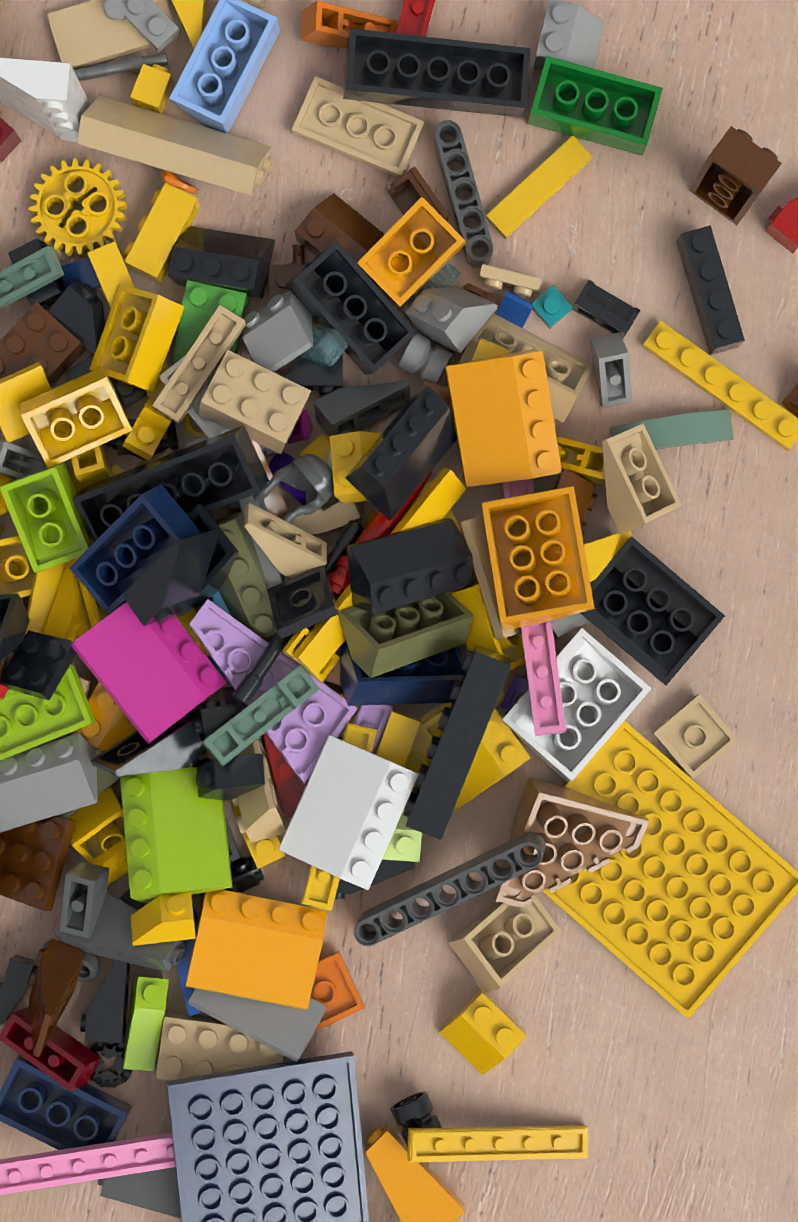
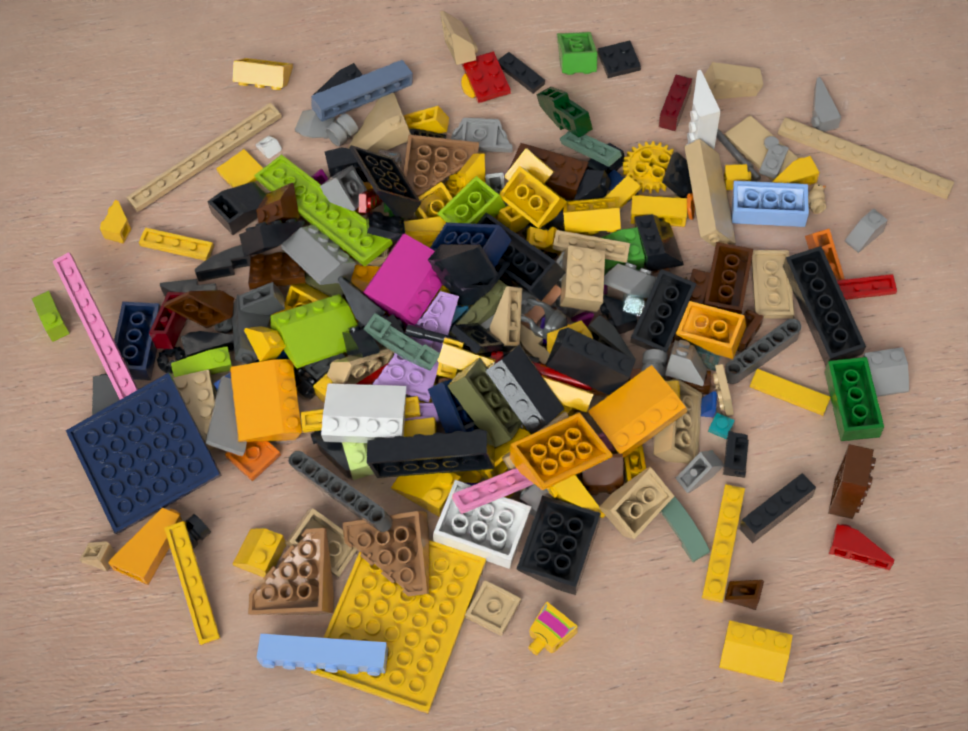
camera: 75 degrees right, 25 degrees down
(120, 176) = (677, 176): none -> black plate
(335, 186) = (729, 277): none -> reddish brown slope
(559, 993) = (300, 582): none -> medium nougat slope
(679, 996) = (322, 653): none -> light blue brick
(759, 673) = (551, 630): none -> yellow torso

